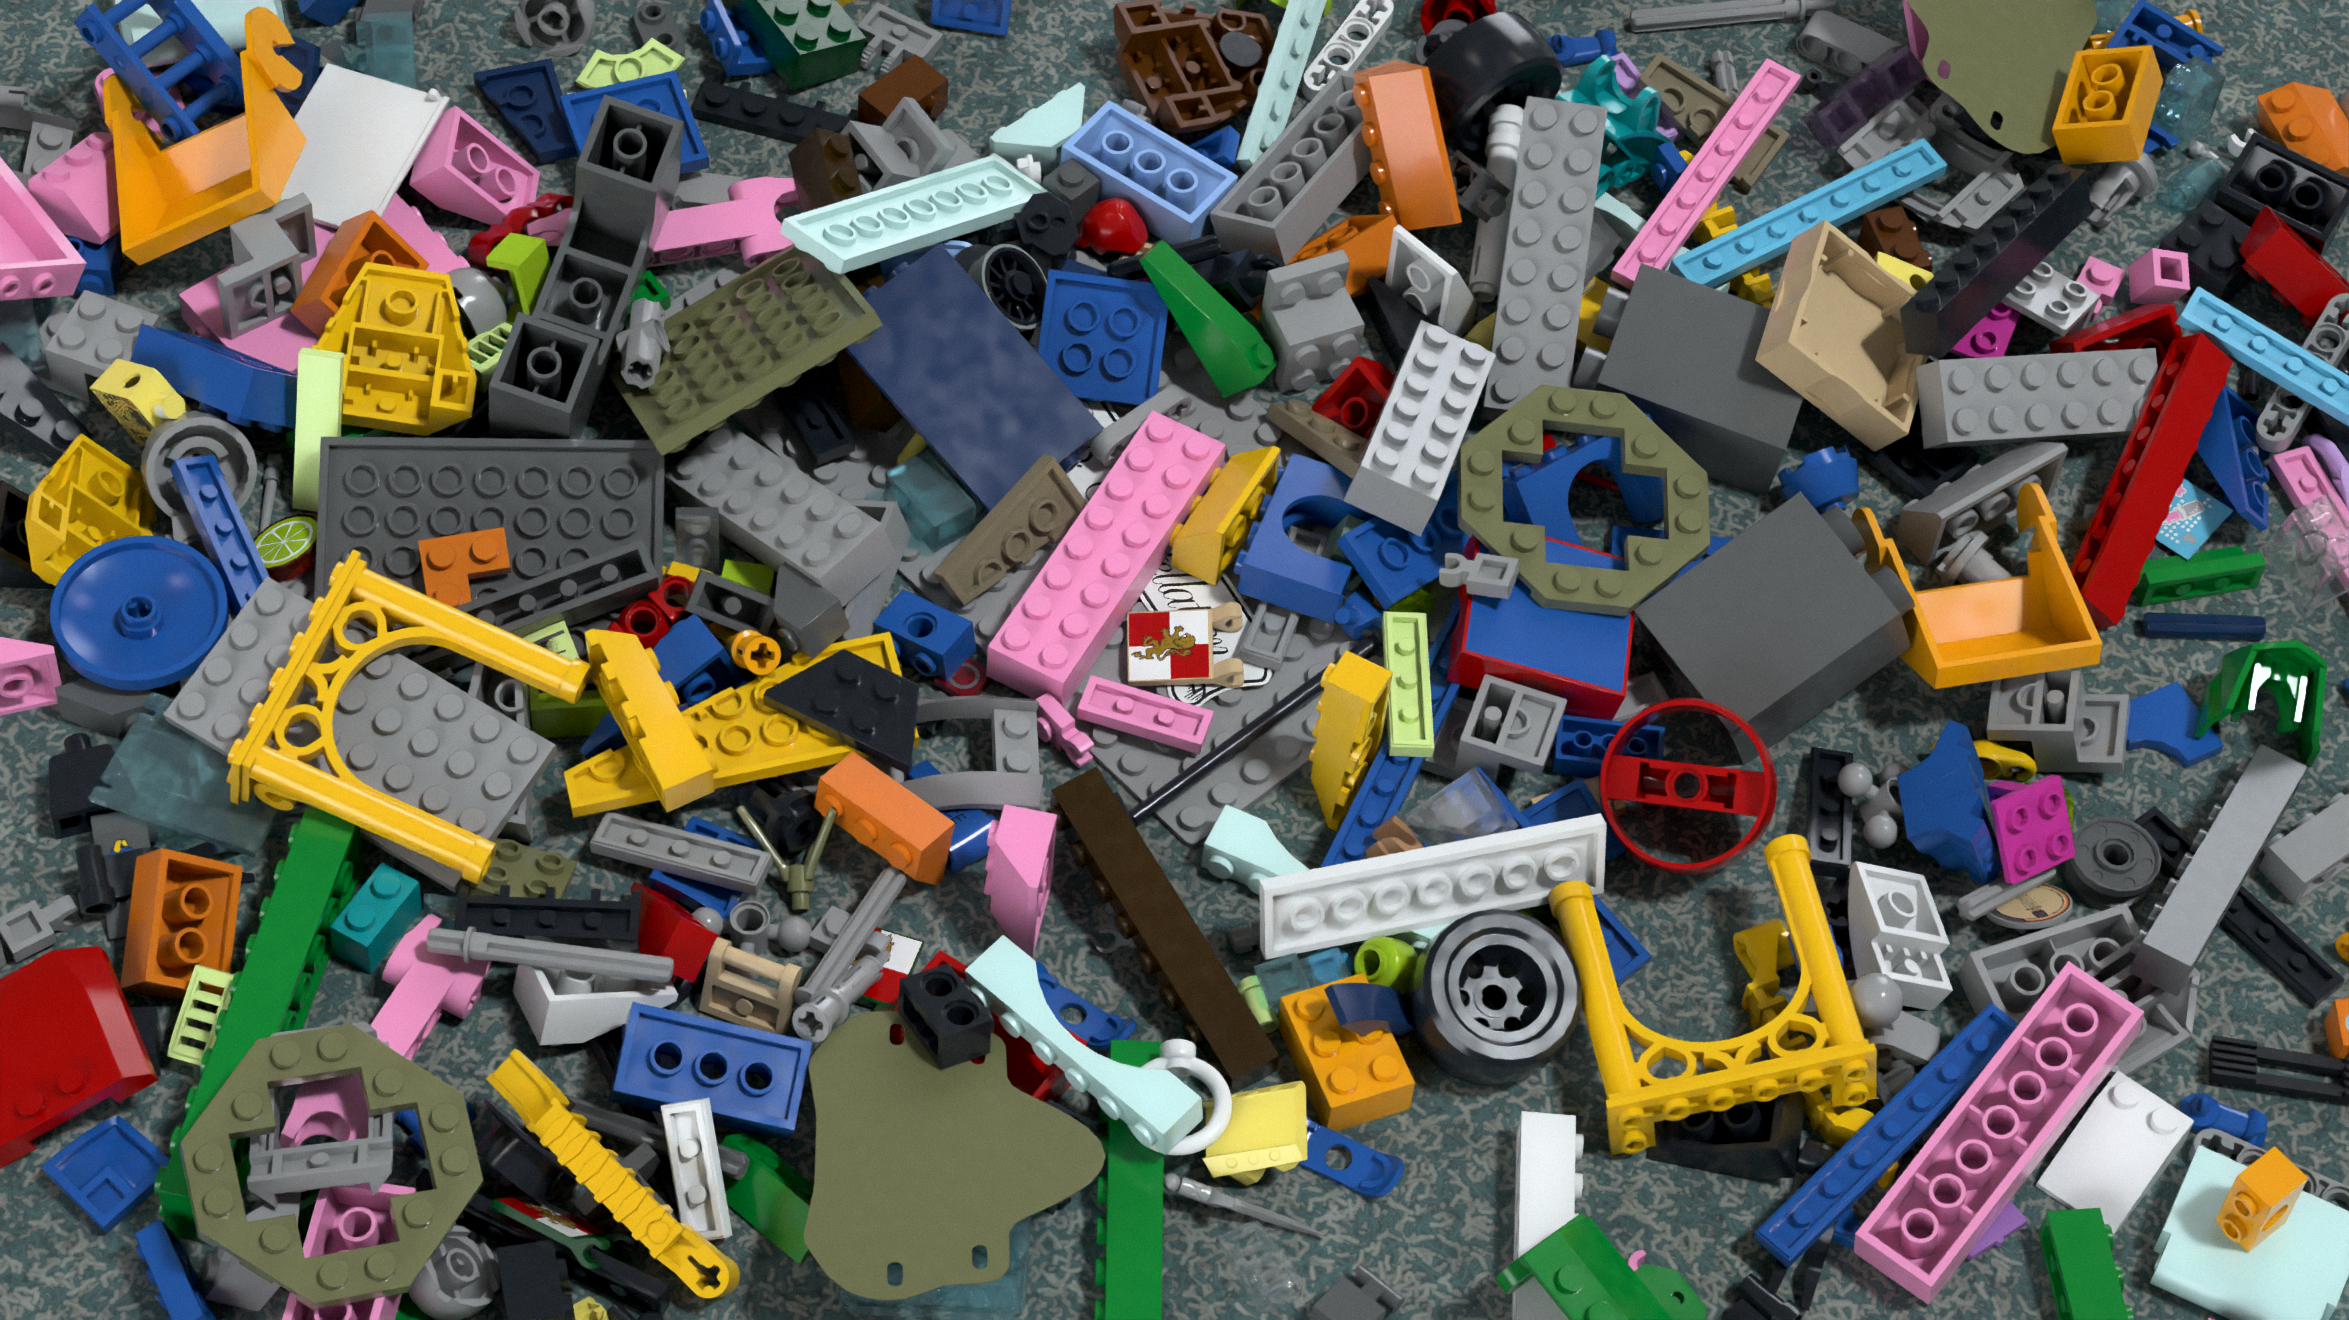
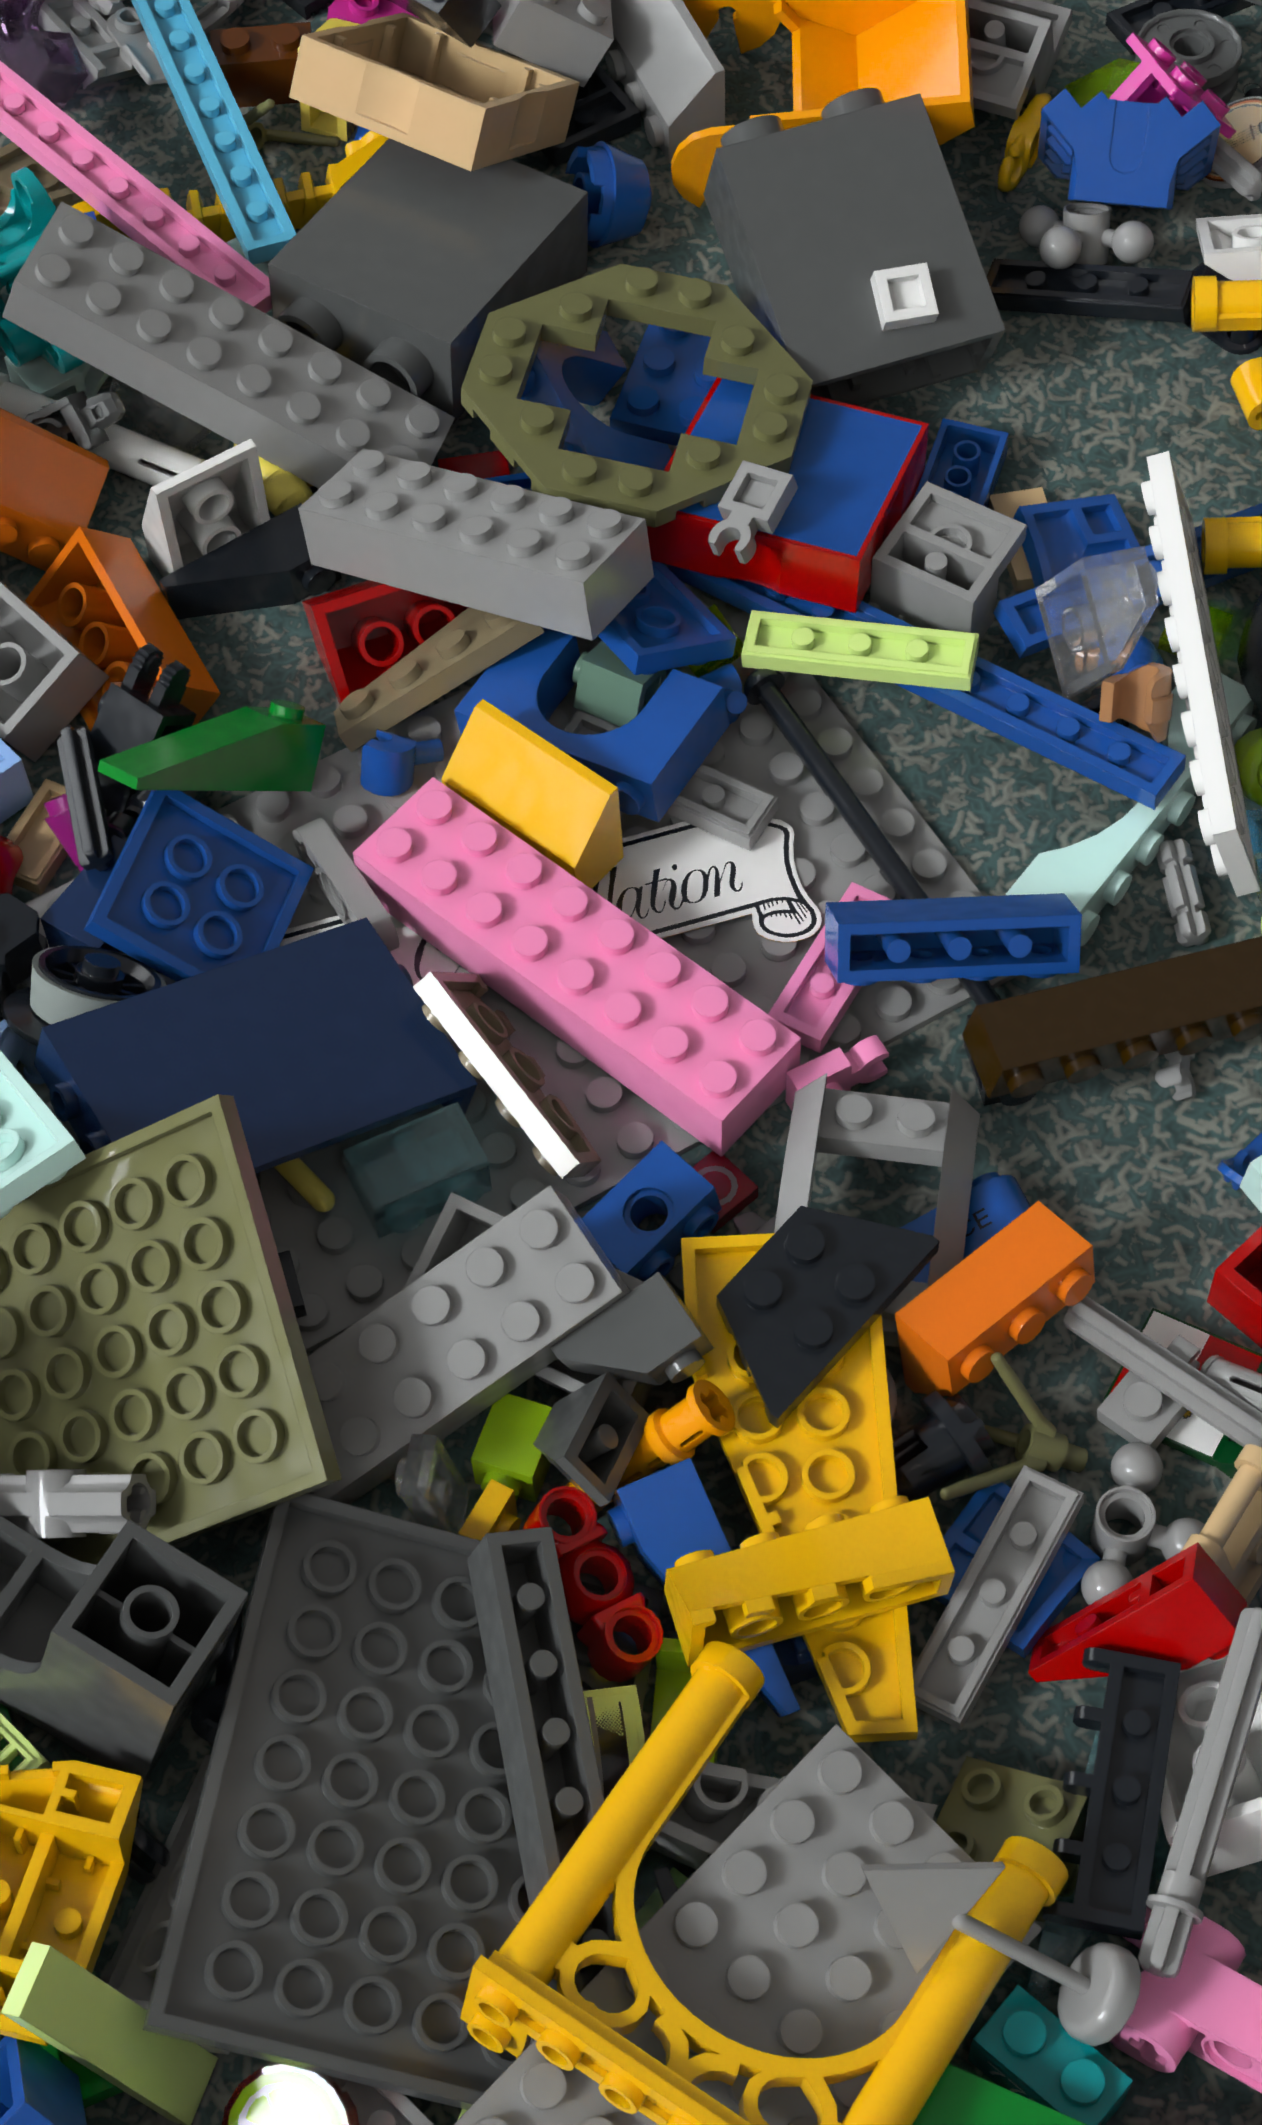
camera: 70 degrees left, 5 degrees up
(428, 782) = (934, 1899): none -> light grey piece
(455, 559) = (423, 1858): orange plate -> none
(1020, 872) = (1124, 1139): bright pink slope -> none
(1164, 760) = (952, 938): none -> blue brick
(1178, 647) = (727, 915): flag -> none
(1253, 435) = (391, 762): none -> blue piece
(1311, 320) = (240, 641): light grey bracket -> none
(1347, 731) = (952, 720): yellow wedge -> none
(1656, 781) = (1119, 333): red cylinder -> none
(1725, 652) = (904, 296): none -> white tile
(1970, 563) = (756, 84): light grey piece -> none

